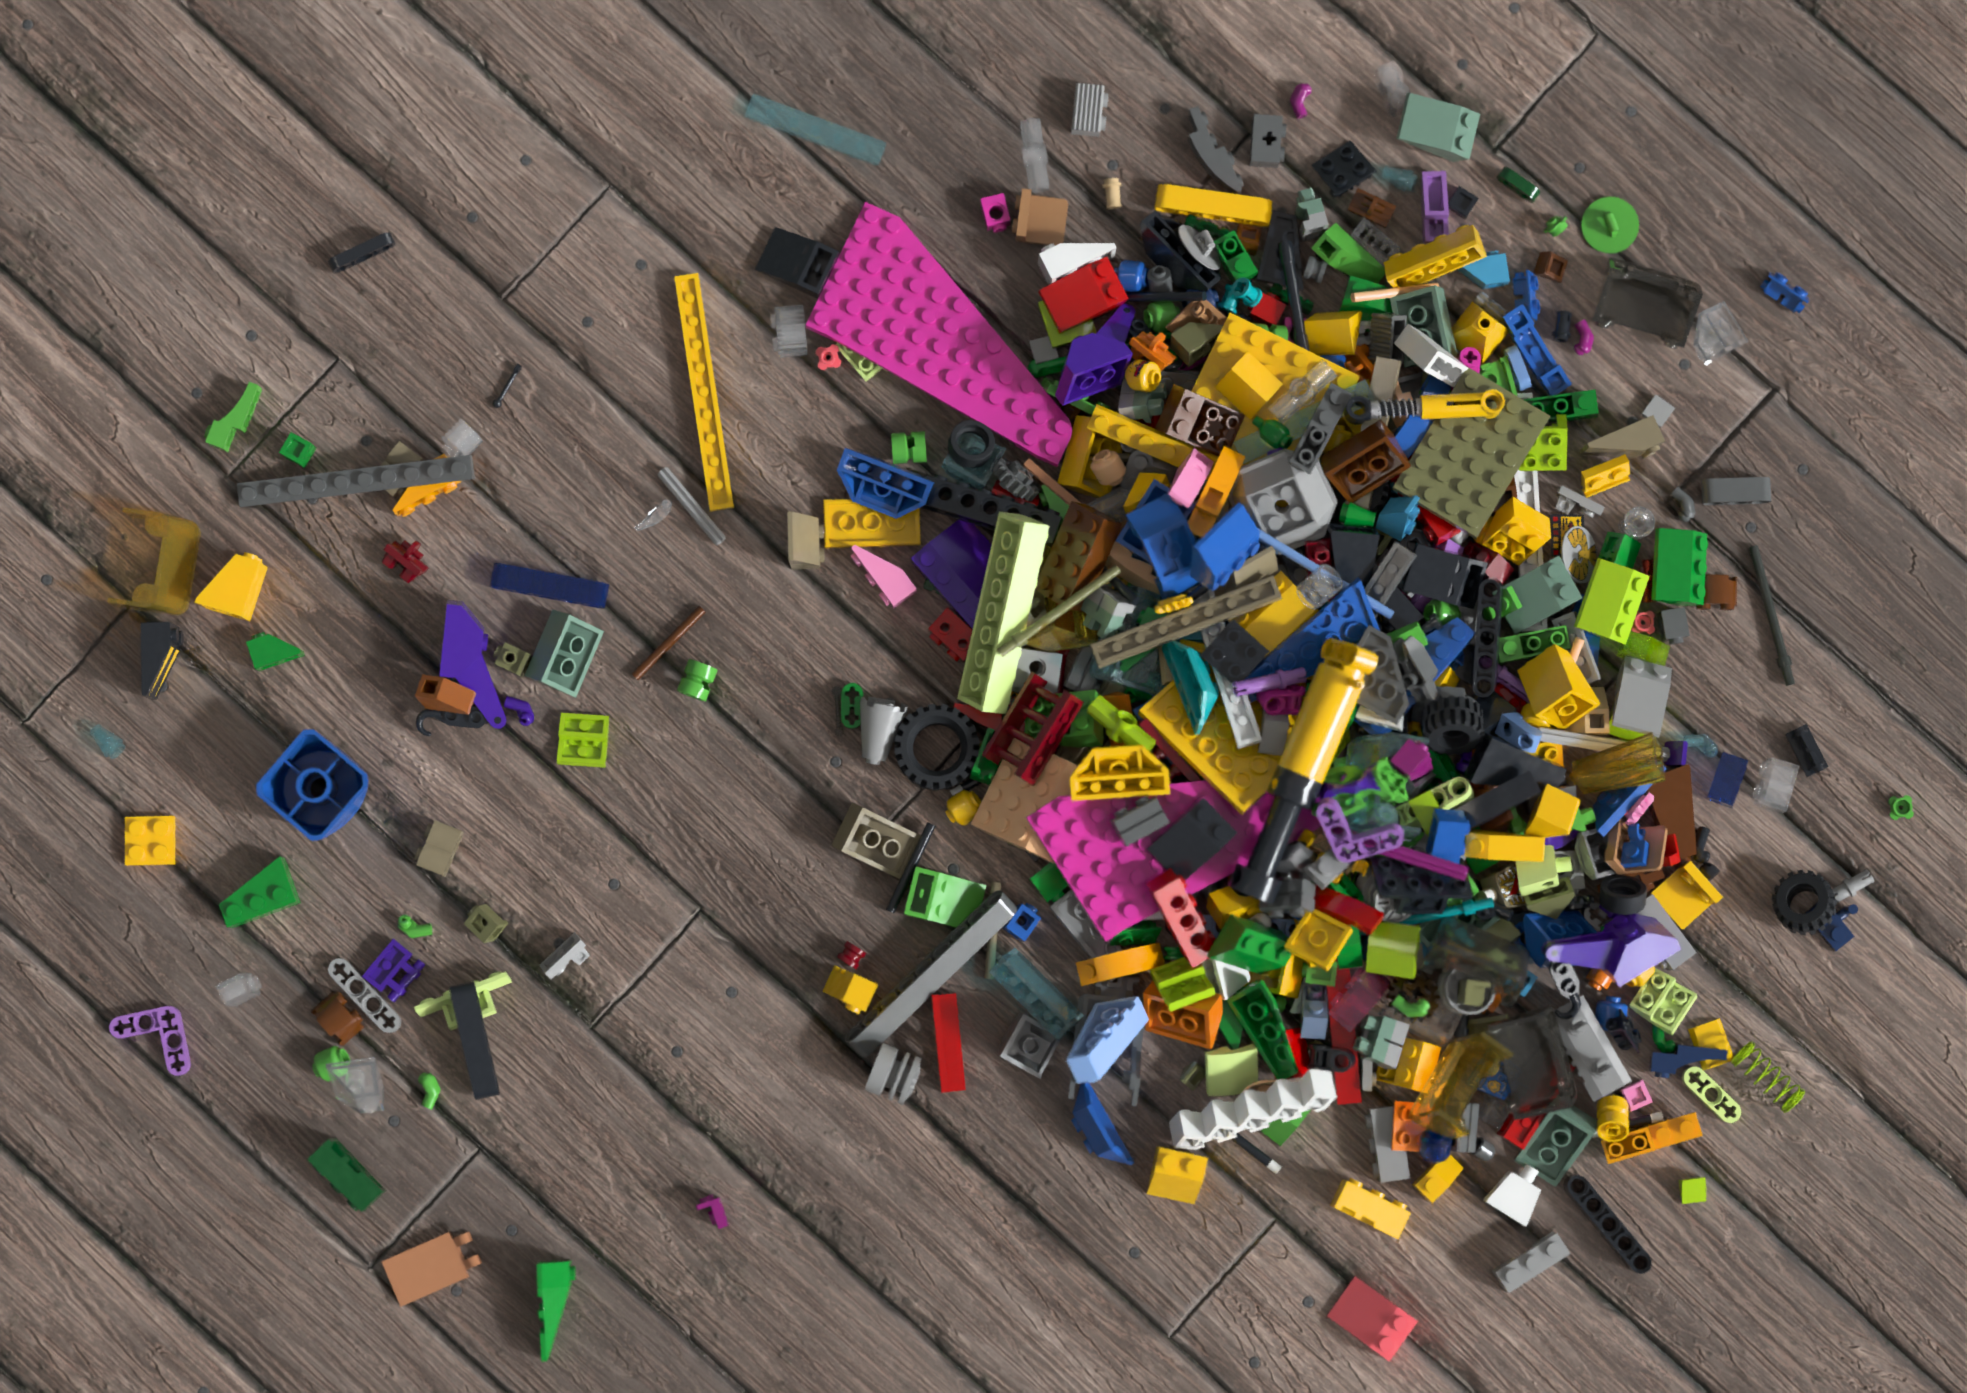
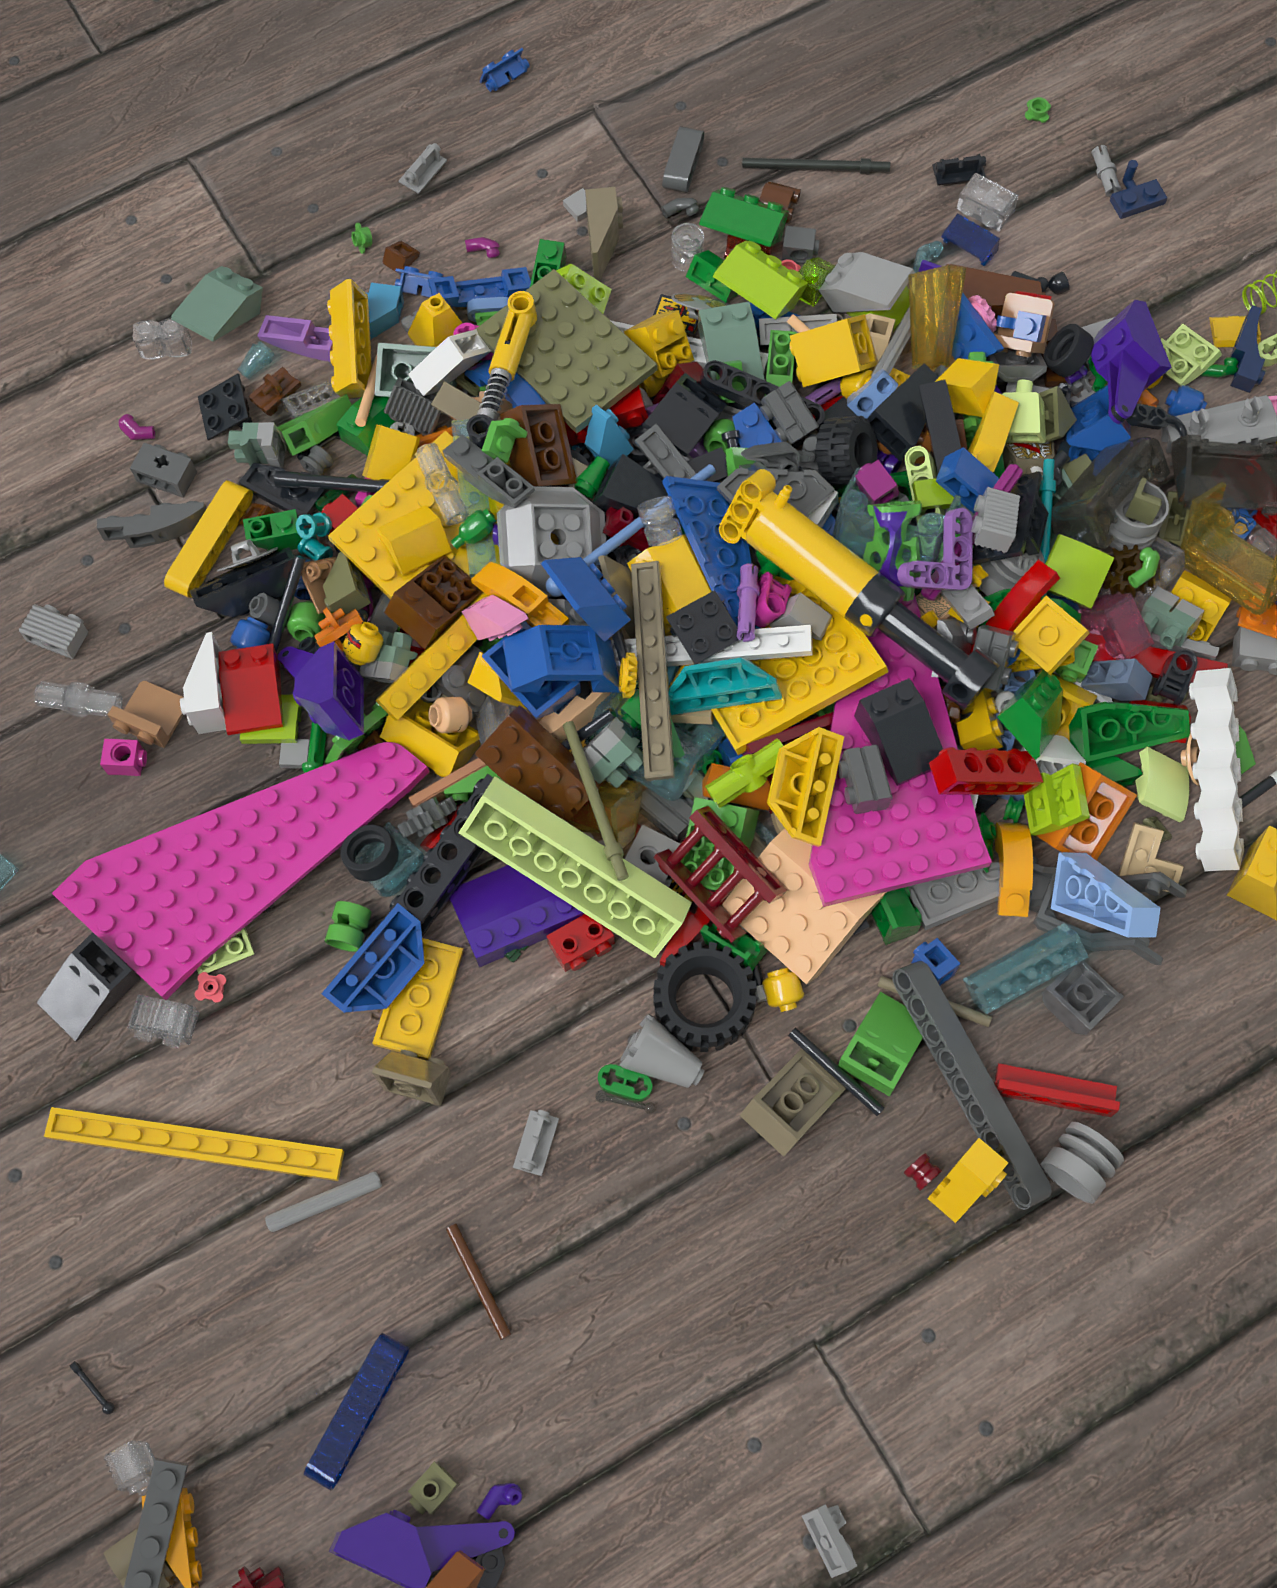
camera: 65 degrees left, 15 degrees down
(564, 653) = (447, 1418): sand green slope -> none
(583, 740) = (563, 1428): lime slope -> none
(655, 515) = (318, 1248): clear bar -> none
(697, 680) = (535, 1257): bright green wheel -> none
(717, 1214) = (1208, 1438): magenta bracket -> none
(784, 652) = (536, 1142): none -> light grey hinge
(890, 579) = (491, 994): bright pink slope -> none
(1097, 1127) = (1197, 948): blue wedge -> none
(1112, 193) = (152, 633): tan pin -> none
(1156, 1070) = (1142, 852): none -> tan plate
(1201, 225) = (225, 556): dark green axle -> none
(1352, 430) = (502, 438): none -> bright green bracket
(1402, 867) = (996, 519): none -> light grey brick
(1462, 202) = (304, 310): black tile -> none
(1470, 665) = (788, 414): none -> dark grey brick
(1518, 184) = (307, 258): dark green beam -> none
(1562, 326) = (470, 262): black pin -> none
(1568, 498) = (641, 297): light grey hinge -> none
(1605, 476) = (629, 259): yellow plate -> none
(1610, 225) = (379, 196): bright green shield -> none
(1623, 1032) = (1209, 392): black hinge -> none
(1647, 301) = (471, 178): clear smoke windscreen -> none
(1649, 254) = (423, 169): none -> light grey hinge
(1686, 894) = (1076, 300): yellow bracket -> none
(1717, 333) = (526, 133): clear slope -> none
(1799, 883) = (1109, 185): black tyre -> none

